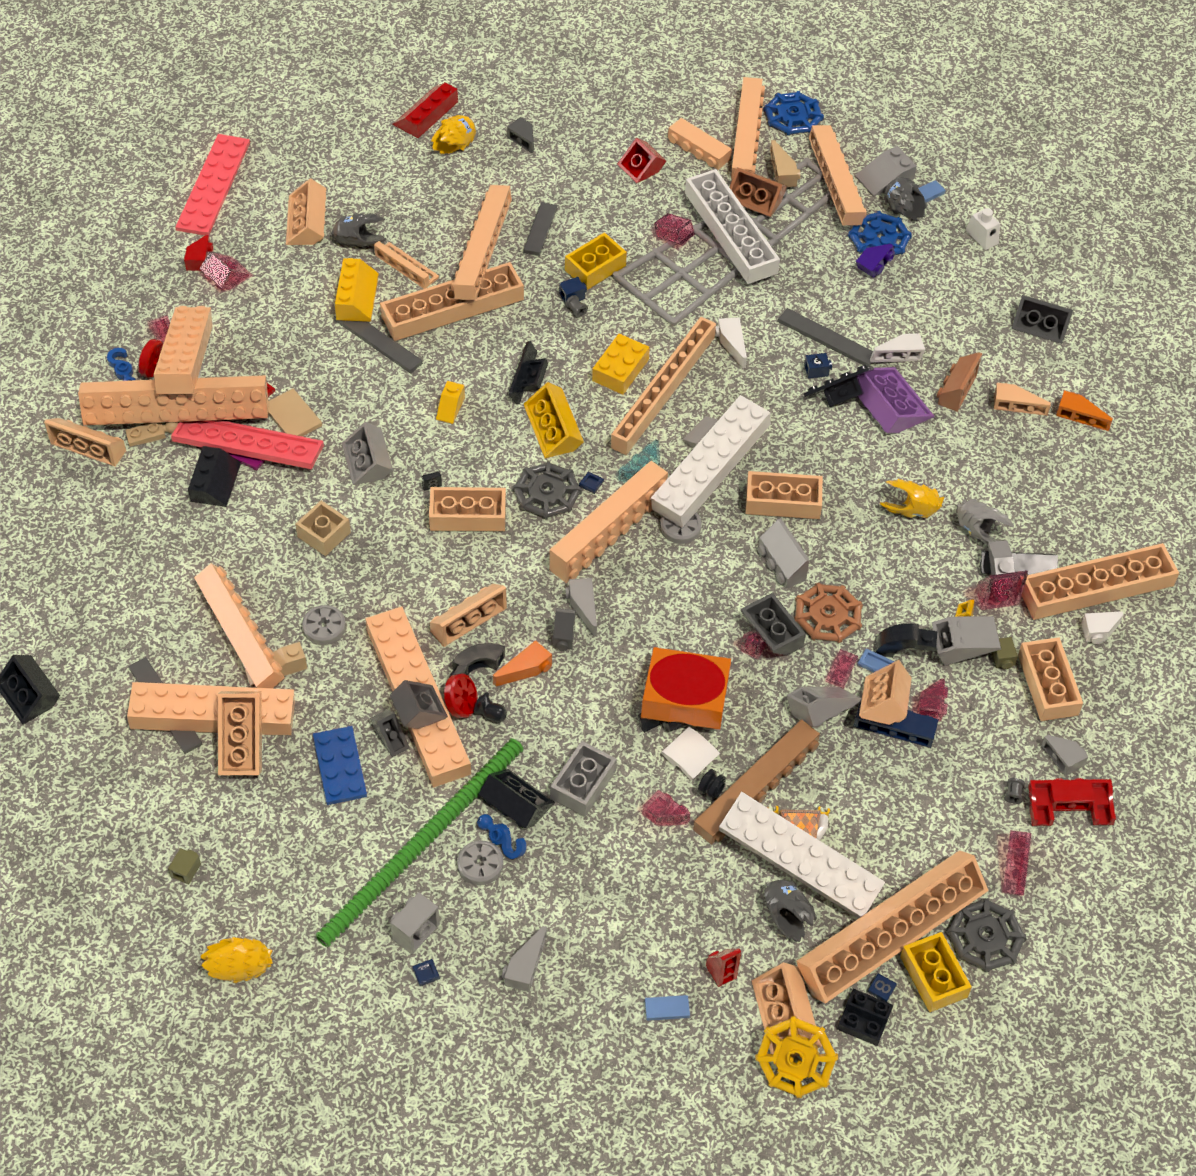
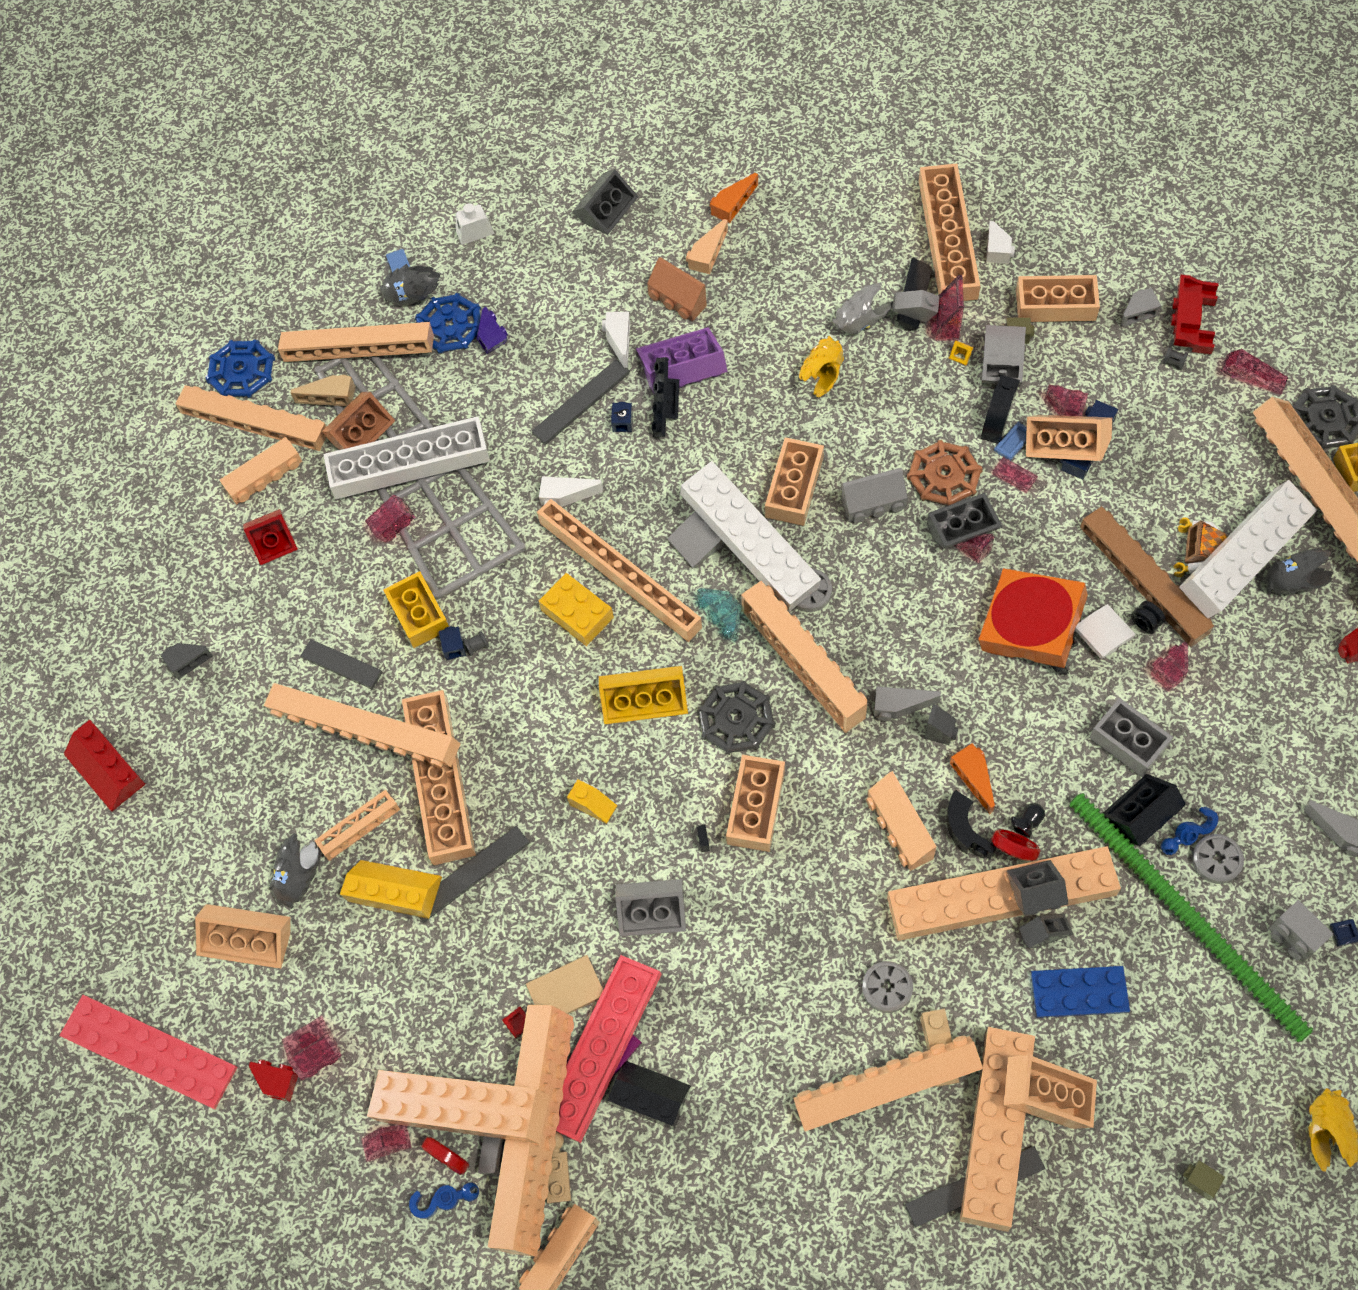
camera: 70 degrees left, 10 degrees up
(323, 528) = (754, 969): tan brick -> none
(454, 134) = (162, 736): yellow head -> none
(528, 374) = (567, 707): black bracket -> none
(591, 482) = (733, 669): dark blue tile -> none
(820, 703) = (1064, 497): light grey slope -> none
(884, 169) = (361, 296): light grey slope -> none

